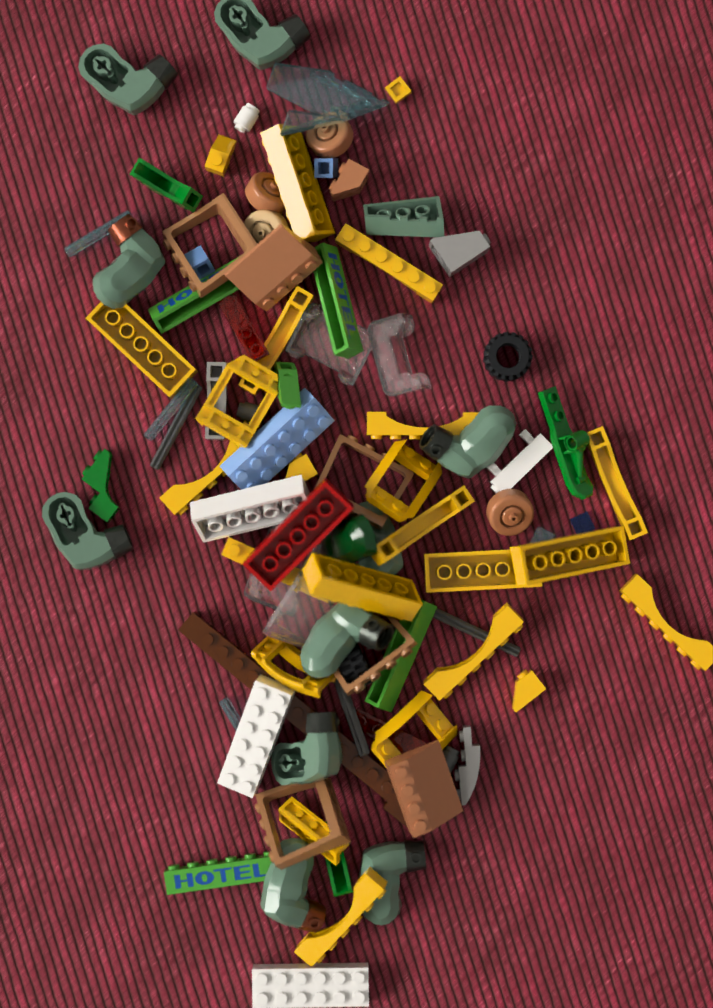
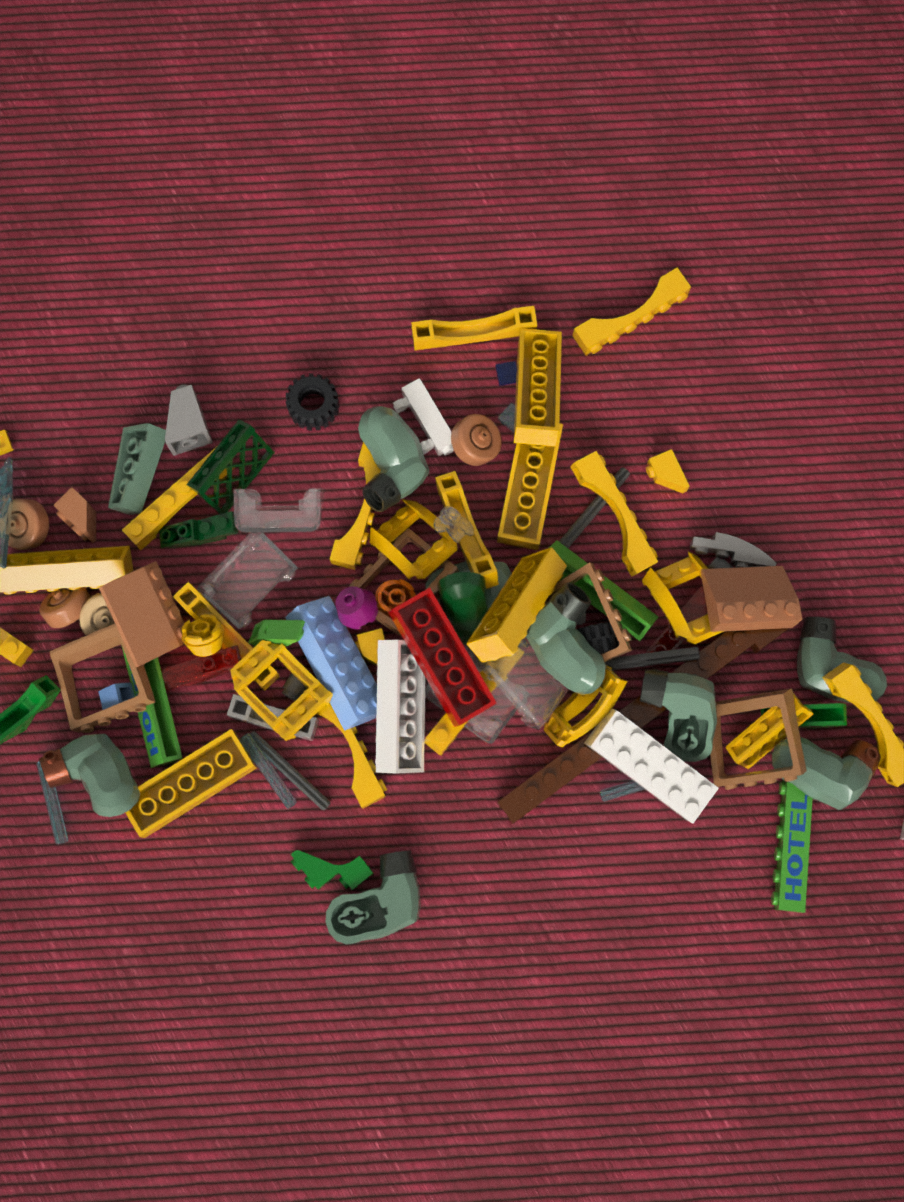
camera: 80 degrees left, 10 degrees down
(269, 322) = (203, 635): none -> yellow cone
(325, 167) = (57, 536): medium blue brick -> none
(327, 447) = (356, 607): none -> magenta cone
(337, 303) = (205, 558): bright green brick -> none
(347, 477) = (393, 594): none -> orange cone
(363, 289) = (198, 531): none -> dark green slope
(420, 513) = (453, 524): none -> clear plate
(429, 293) = (222, 459): none -> dark green fence
(566, 445) = (421, 365): green piece -> none

